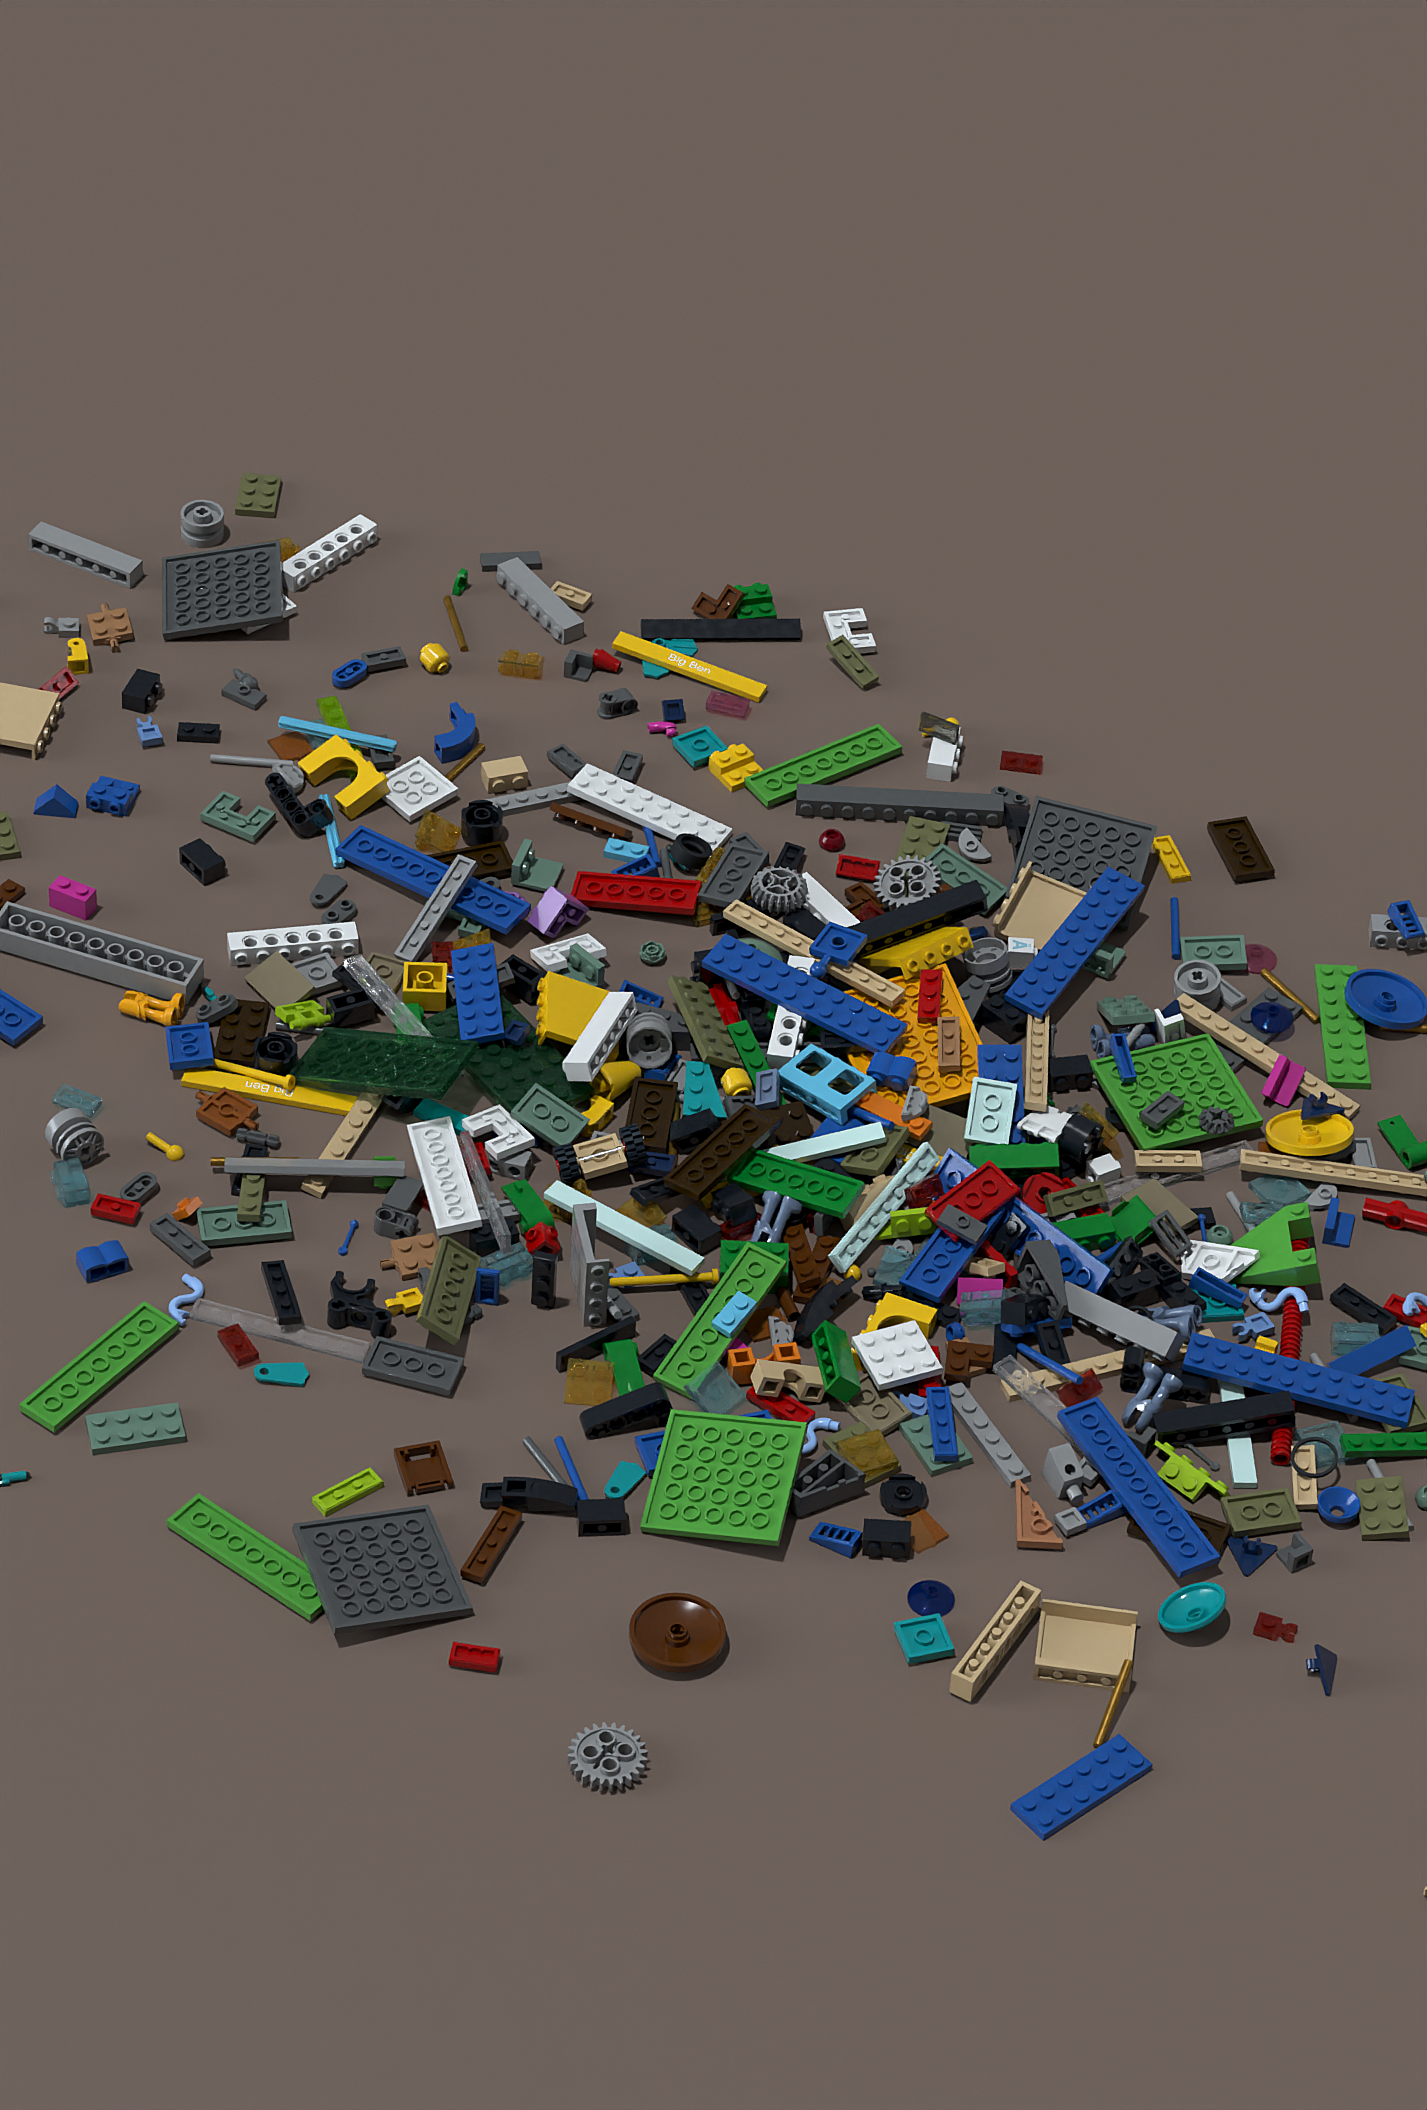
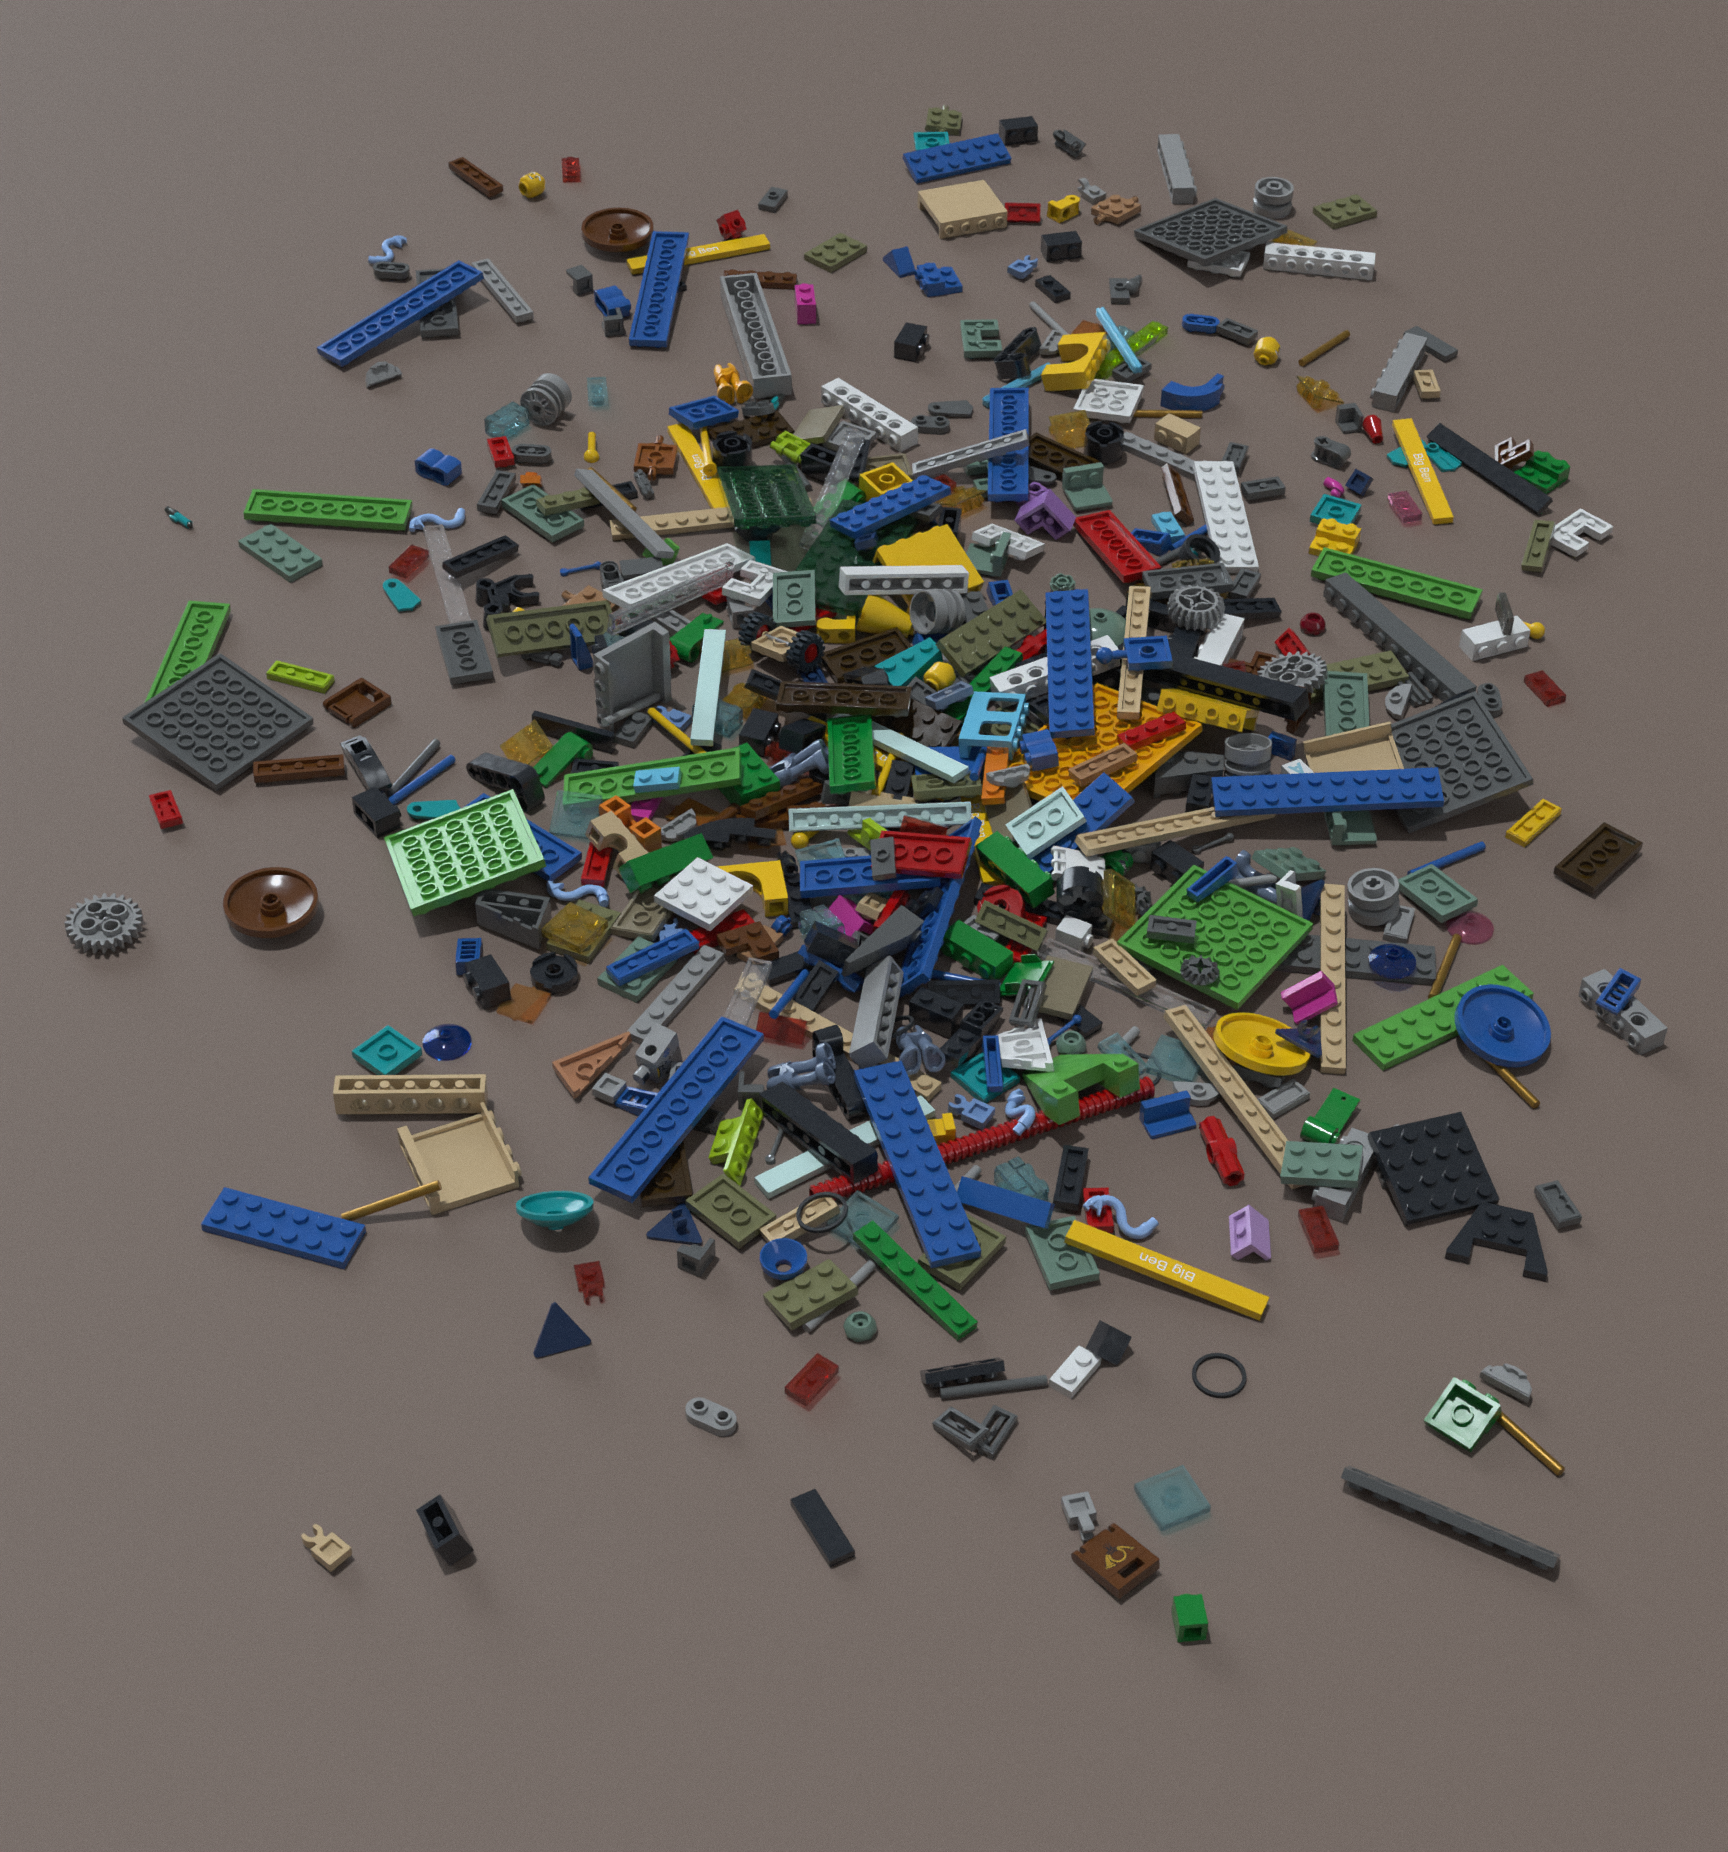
camera: 60 degrees right, 0 degrees up
(461, 582) = (1370, 329): green tile -> none

